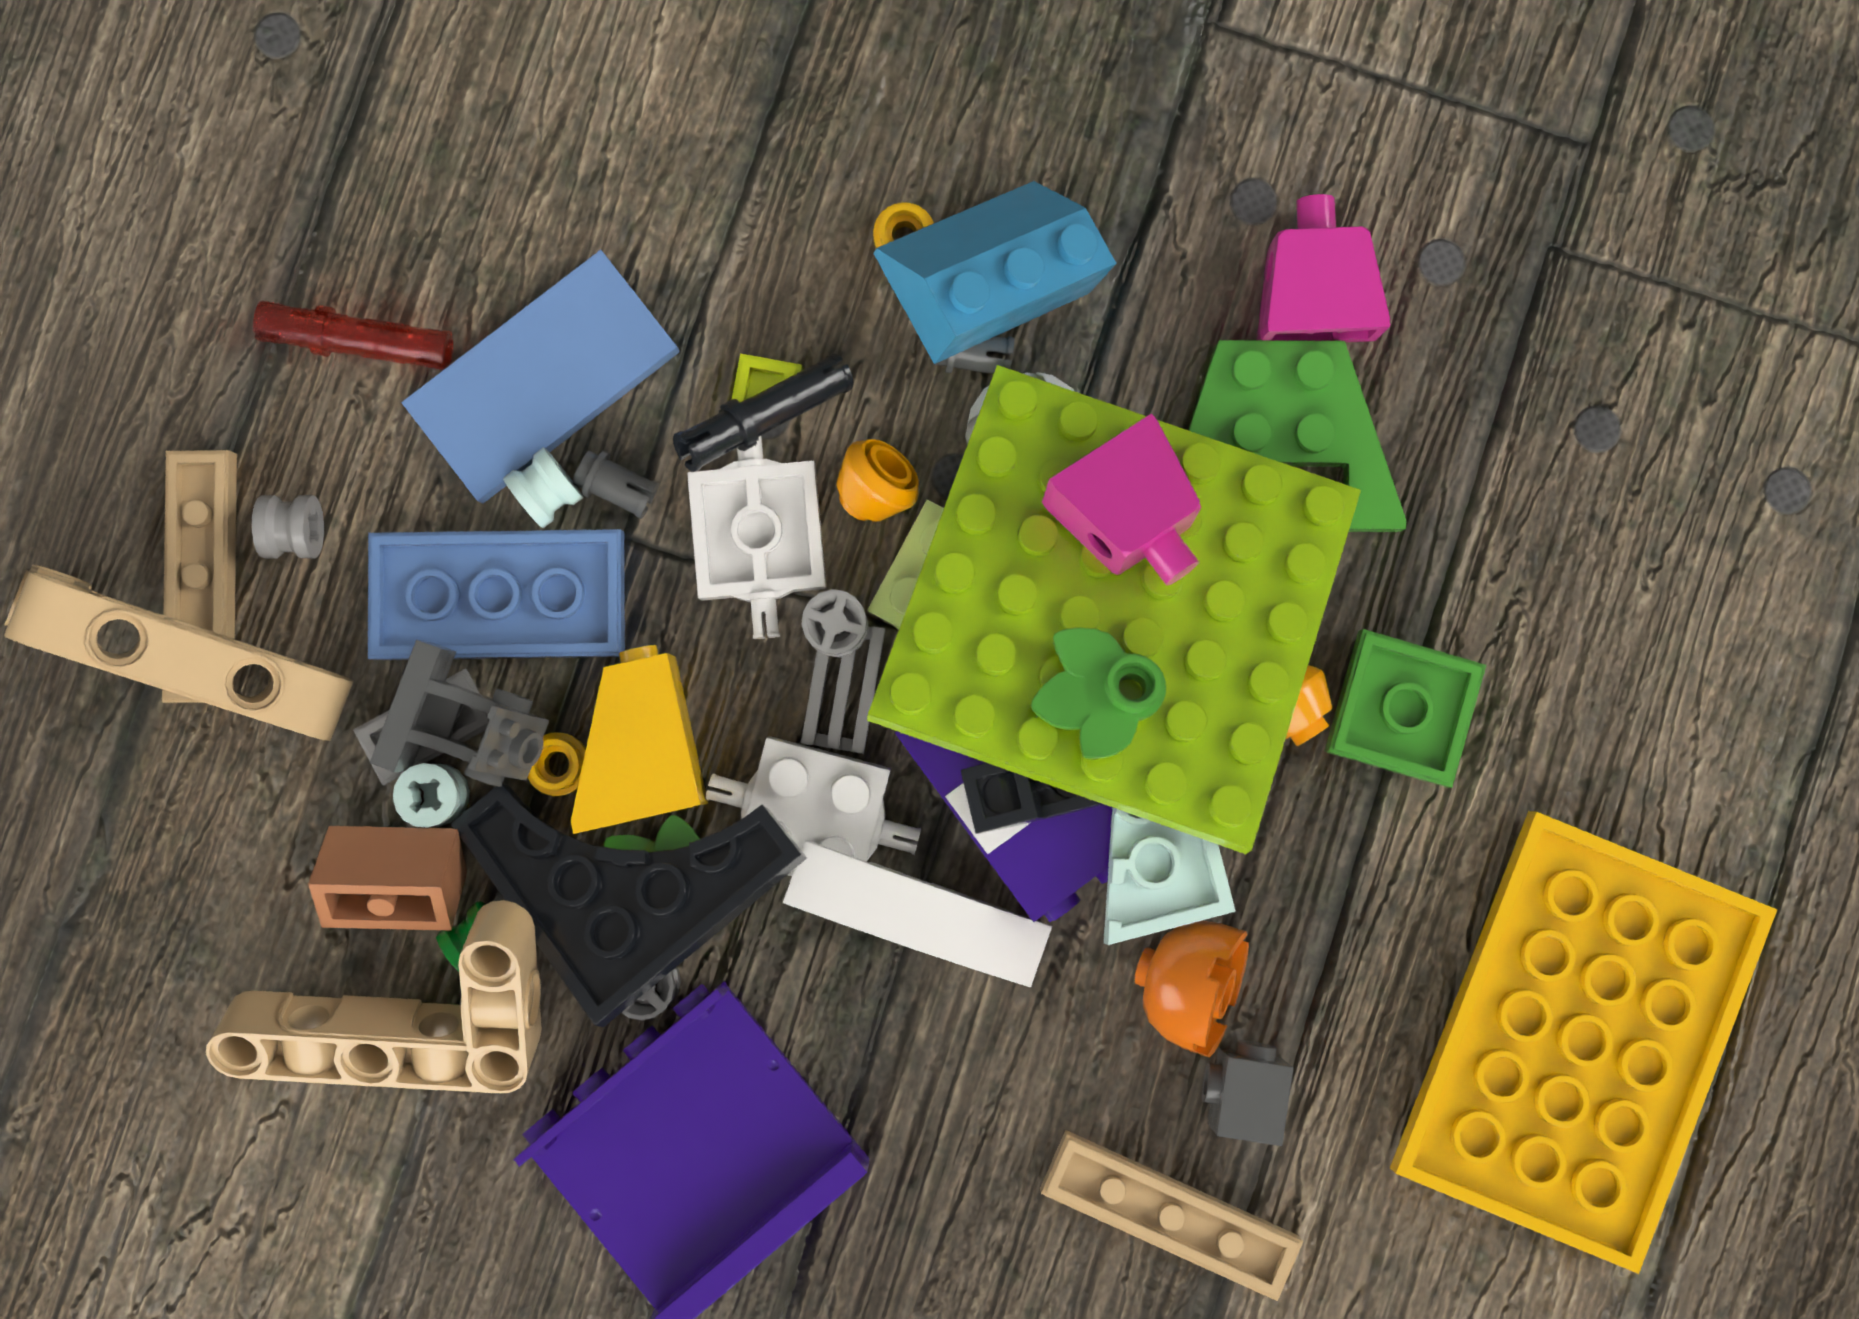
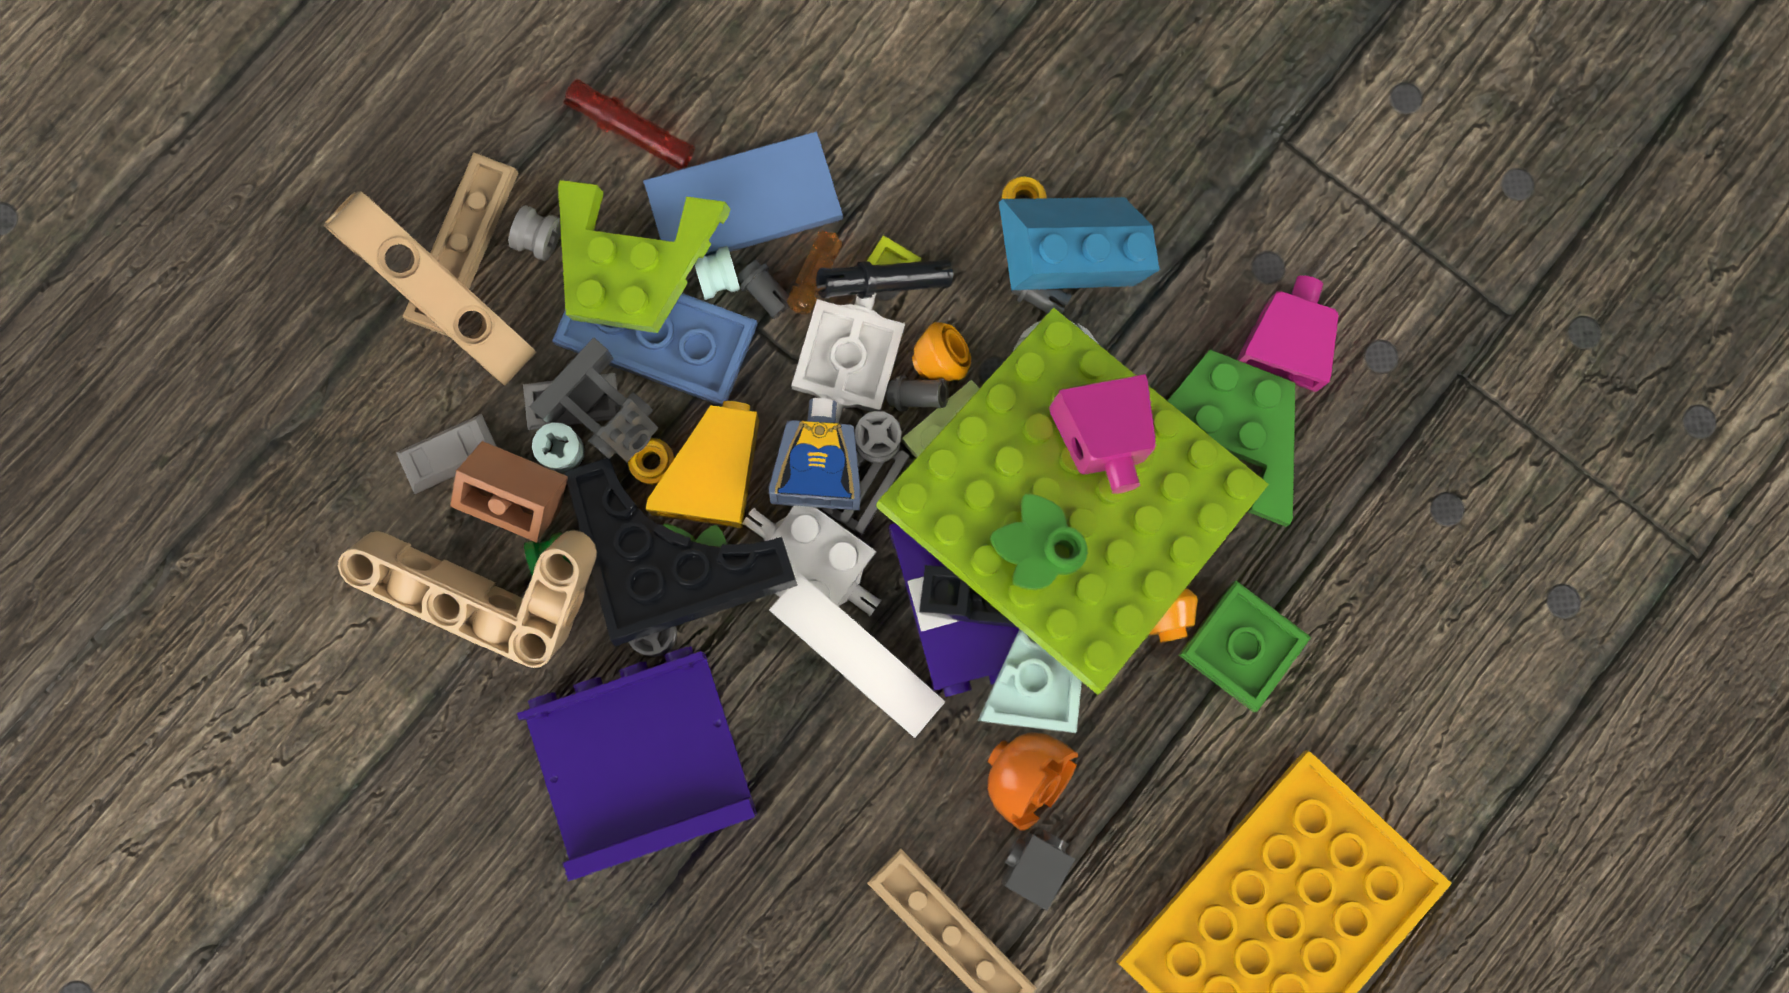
camera: 10 degrees right, 5 degrees down
(285, 860) = (443, 453): none -> light grey tile
(426, 541) = (627, 277): none -> lime wing
(673, 397) = (802, 297): none -> clear orange axle
(769, 687) = (817, 462): none -> torso
(850, 549) = (917, 393): none -> dark grey pin

